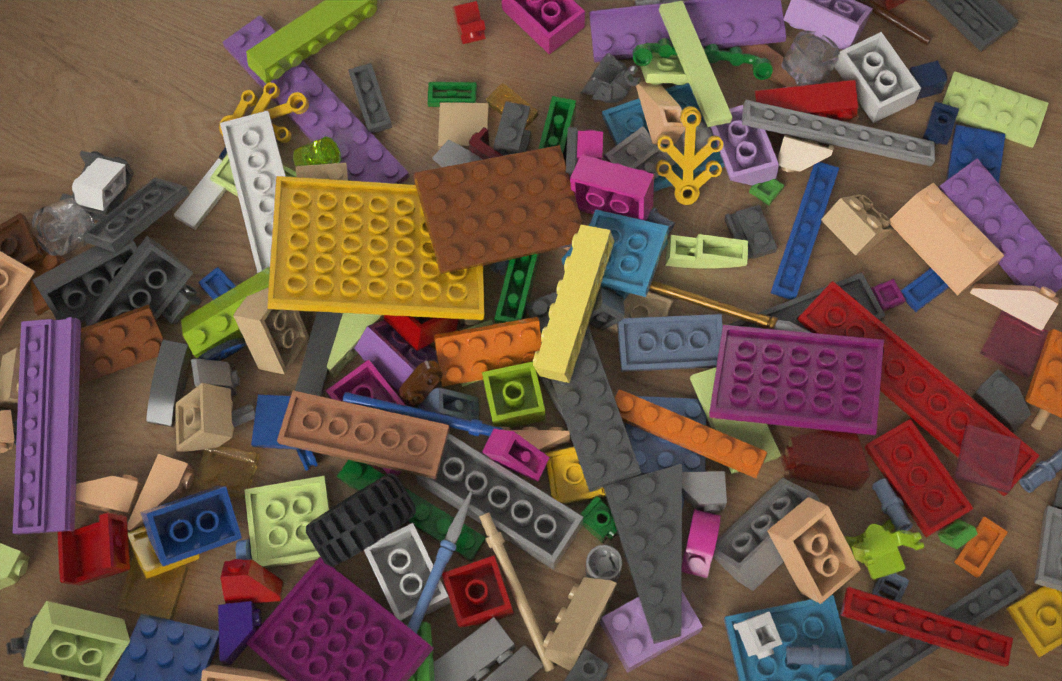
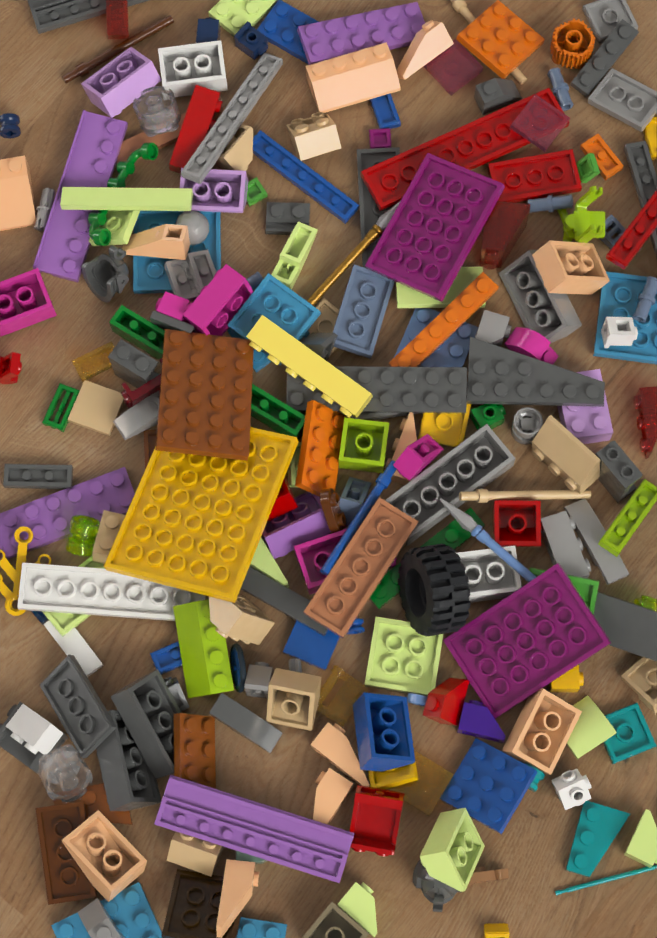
camera: 70 degrees left, 5 degrees up
(689, 161) = (213, 235): yellow plant -> none

